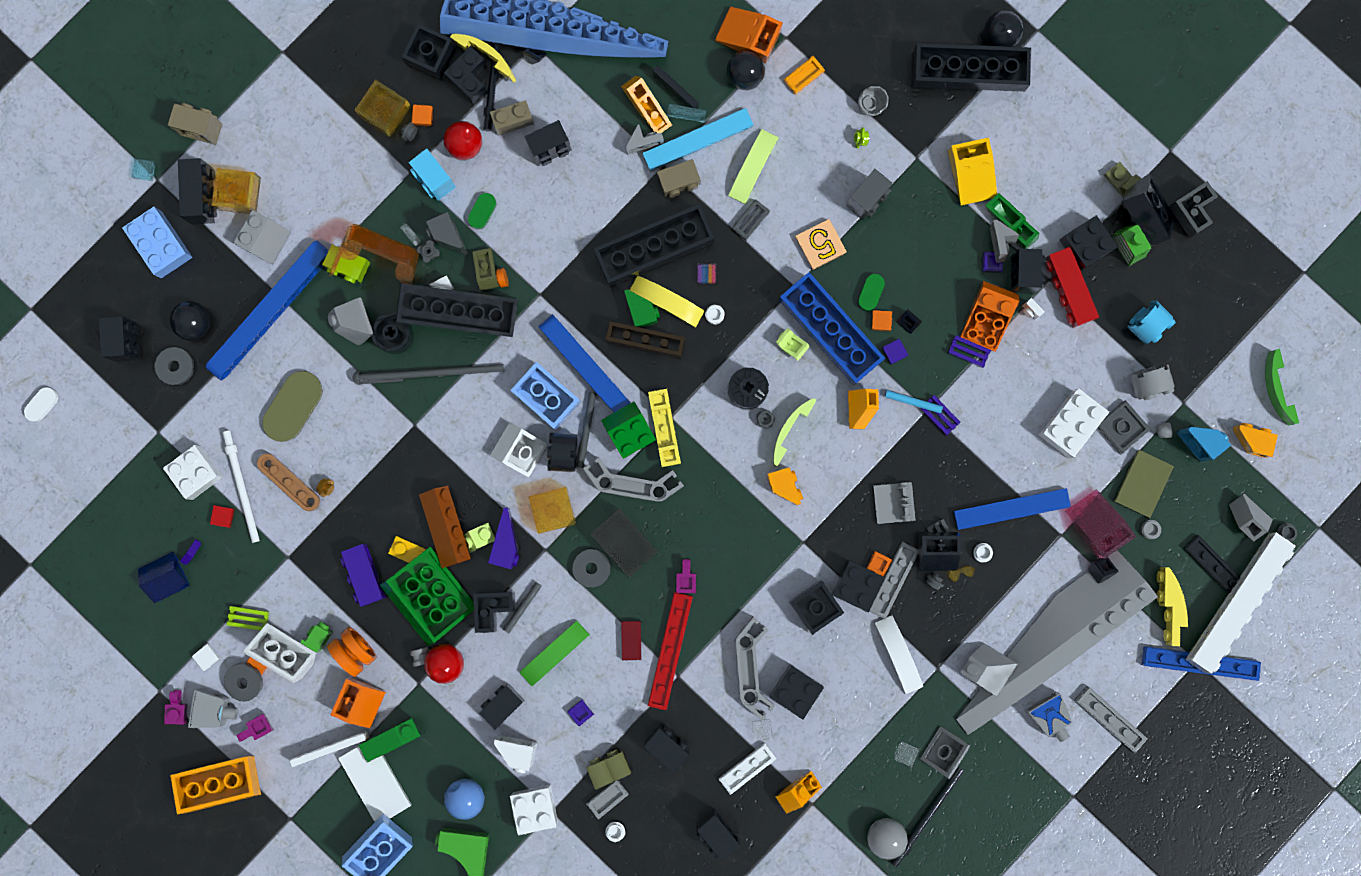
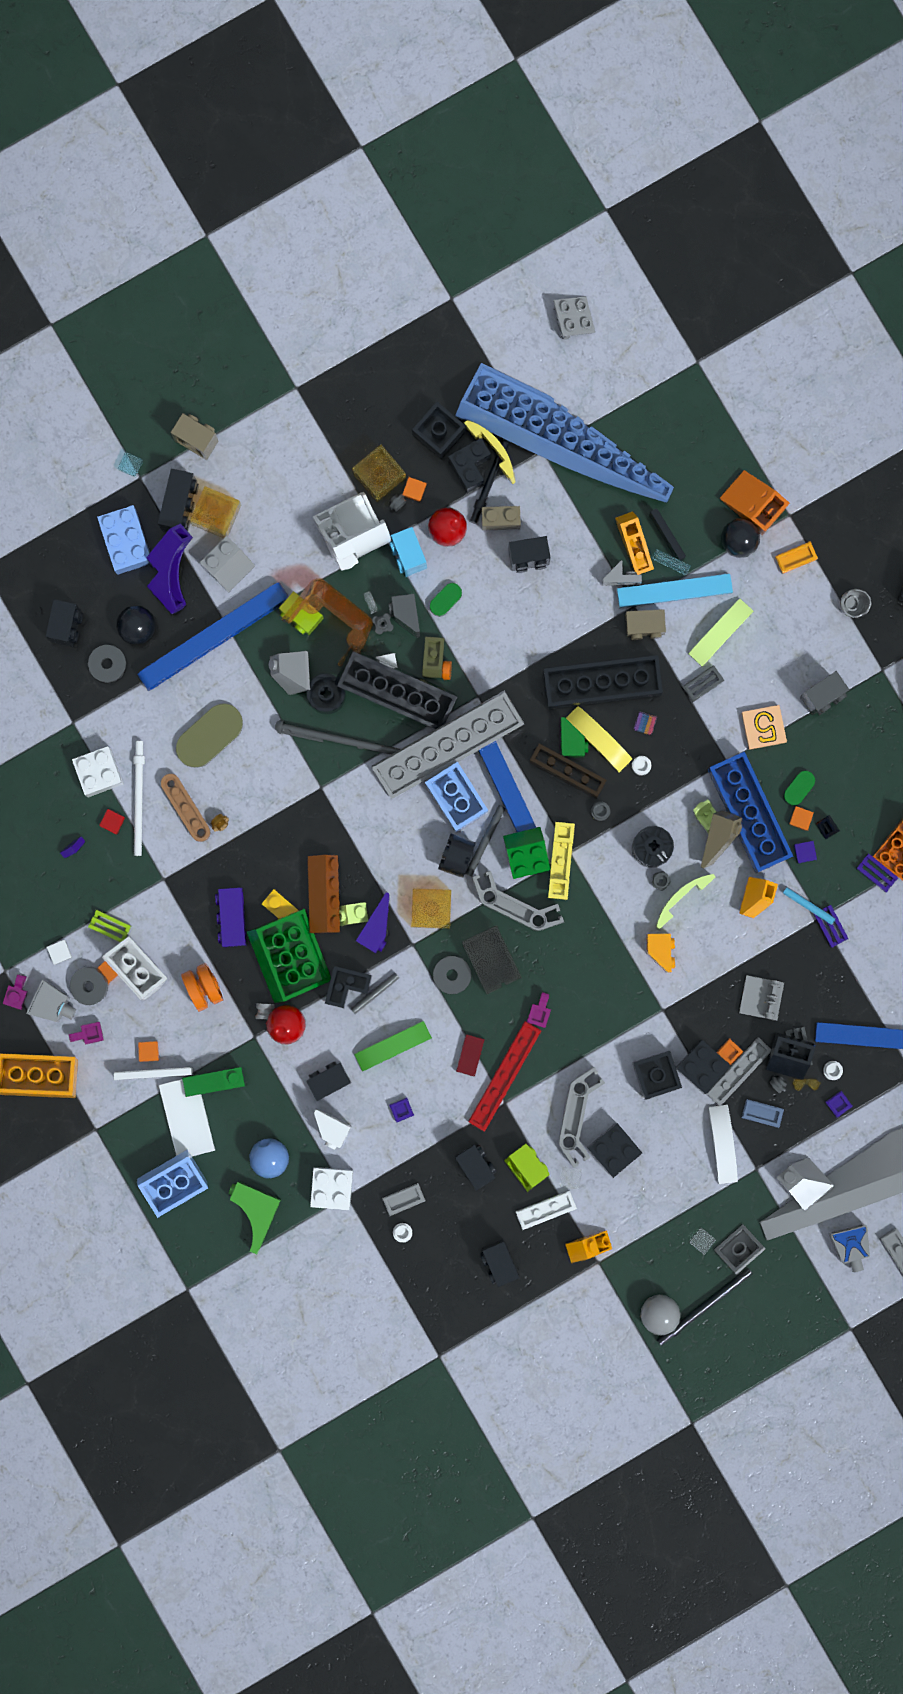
camera: 15 degrees right, 0 degrees up
(162, 578) = (39, 863): clear blue slope -> none
(199, 248) = (166, 560): none -> dark purple arch
(317, 637) = (172, 963): bright green brick -> none
(319, 728) = (148, 1051): none -> orange tile
(358, 703) = (193, 1038): orange slope -> none
(371, 170) = (351, 530): none -> white piece
(519, 449) = (415, 841): white slope -> none
(522, 347) = (448, 744): none -> light grey plate
(534, 55) = (539, 463): black slope -> none
(608, 769) = (413, 1171): olive brick -> none
(688, 369) = (600, 811): none -> dark grey plate
(717, 733) = (527, 1167): none -> lime brick
(810, 354) = (722, 833): none -> dark tan slope
(861, 137) = (833, 635): lime plate -> none
(927, 613) = (762, 1113): none -> sand blue tile
(997, 583) = (838, 1104): none -> dark purple tile

